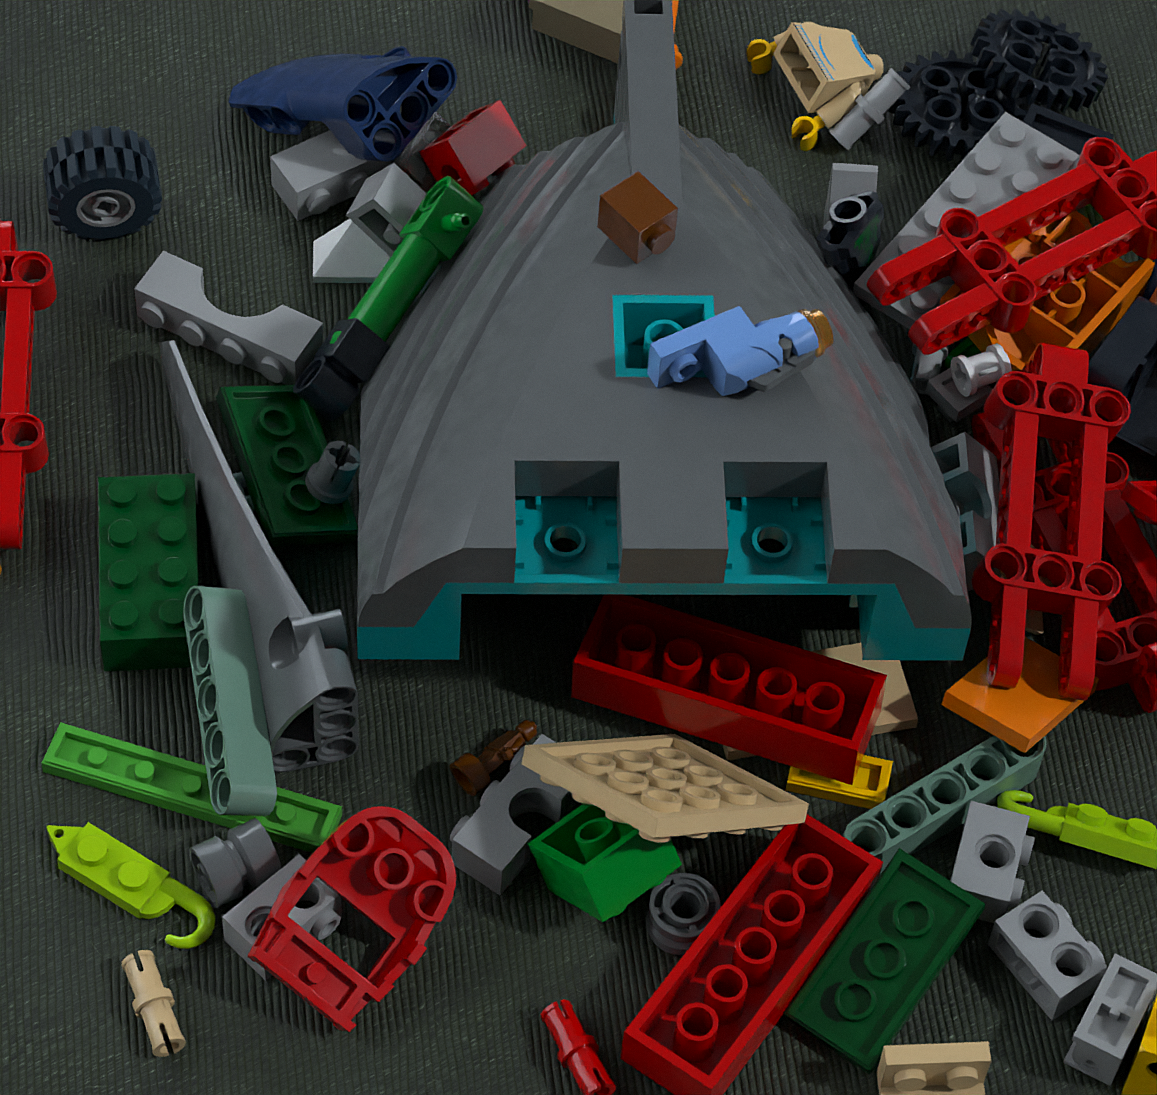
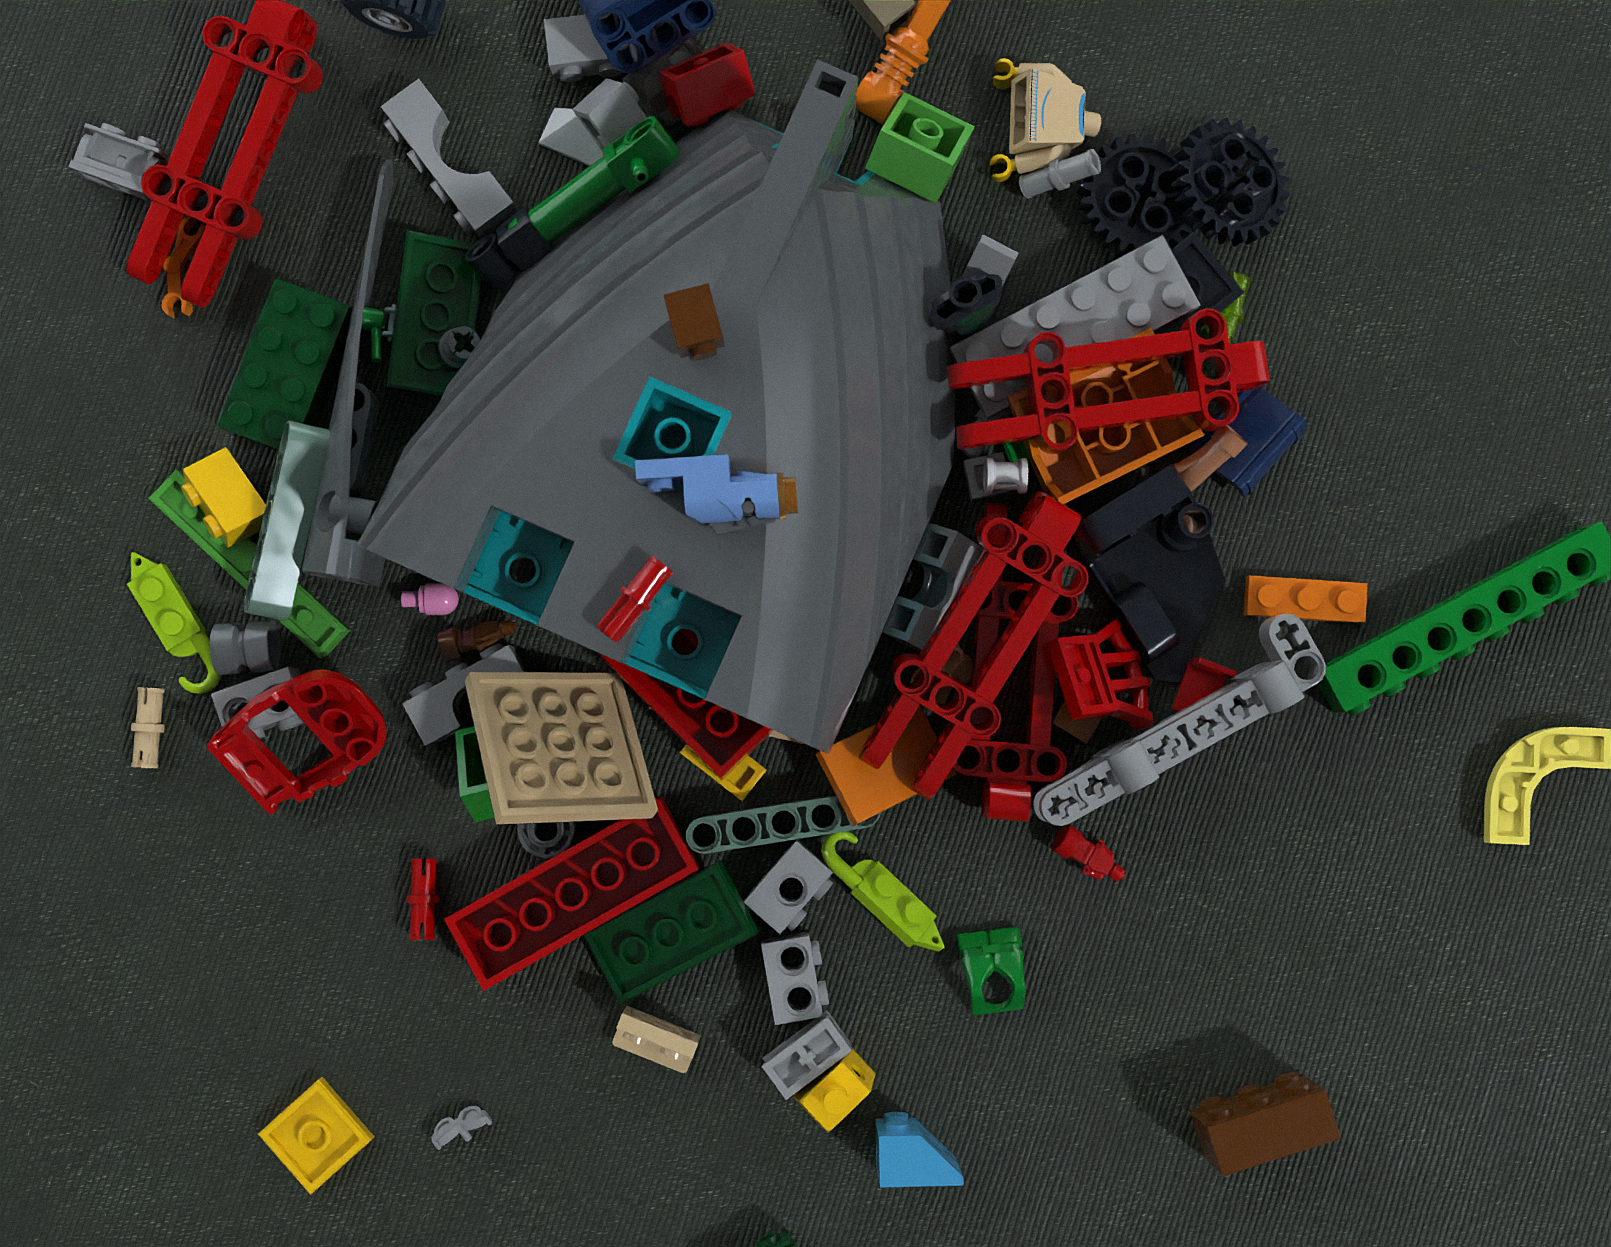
camera: 25 degrees right, 30 degrees up
(140, 717) = (224, 496): none -> yellow brick
(424, 738) = (432, 599): none -> bright pink cylinder
(713, 477) = (634, 599): none -> red axle
(731, 121) = (919, 147): none -> bright green brick

